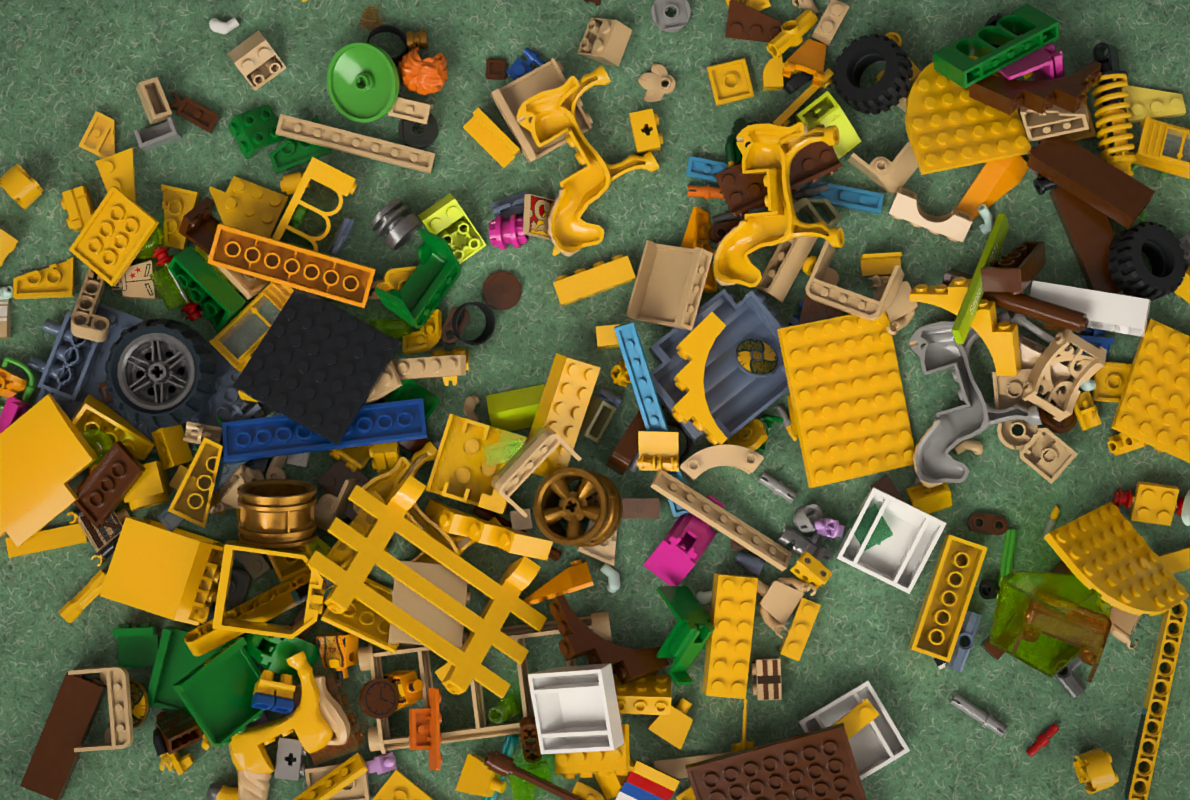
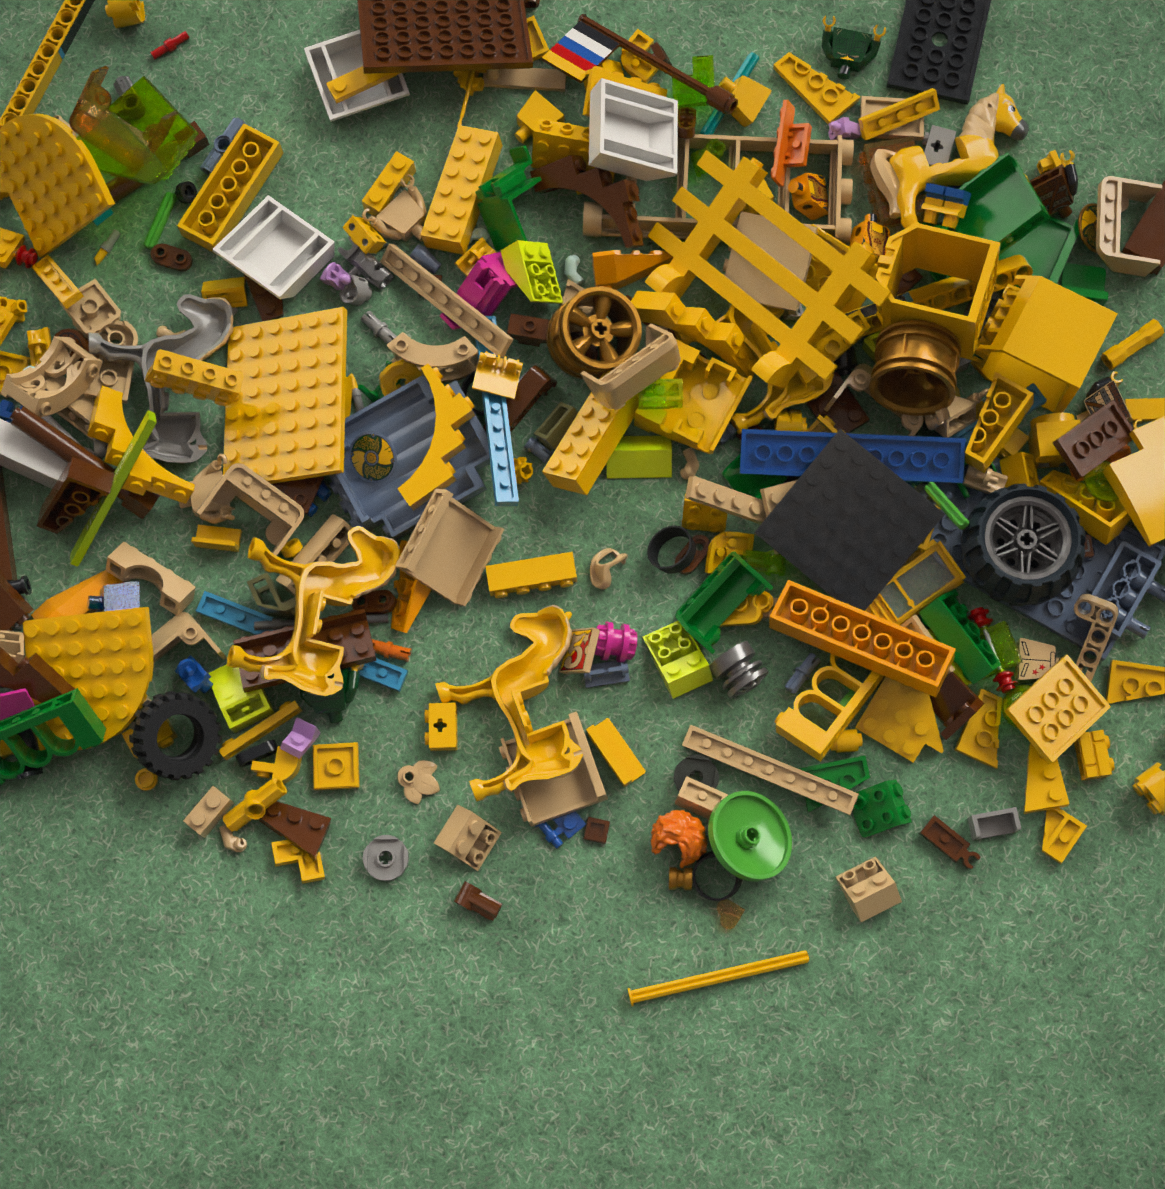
camera: 170 degrees left, 10 degrees down
(153, 100) = (993, 861): tan piece -> none
(223, 27) = (902, 936): white arm -> none
(232, 395) = (946, 505): none -> bright green axle
(379, 698) = (835, 182): reddish brown tile -> none
(501, 290) = (634, 584): reddish brown tile -> none
(534, 291) = (600, 573): none -> tan piece
(606, 337) = (528, 508): yellow brick -> none
(646, 561) = (532, 270): none -> neon yellow slope
(703, 570) = (470, 258): none -> yellow hips
(765, 95) = (300, 738): none -> lavender slope
(767, 679) = (432, 145): brick -> none
(808, 59) = (243, 769): light orange flag -> none
(871, 134) = (194, 675): none -> blue hips
(880, 533) = (281, 256): clear green piece -> none
(930, 391) = (194, 377): none -> yellow bracket
(953, 186) = (116, 597): none -> clear blue torso
(985, 719) = (221, 72): light grey pin -> none
(987, 217) = (90, 566): light aqua arm -> none
(1085, 473) = (57, 281): none -> yellow tile

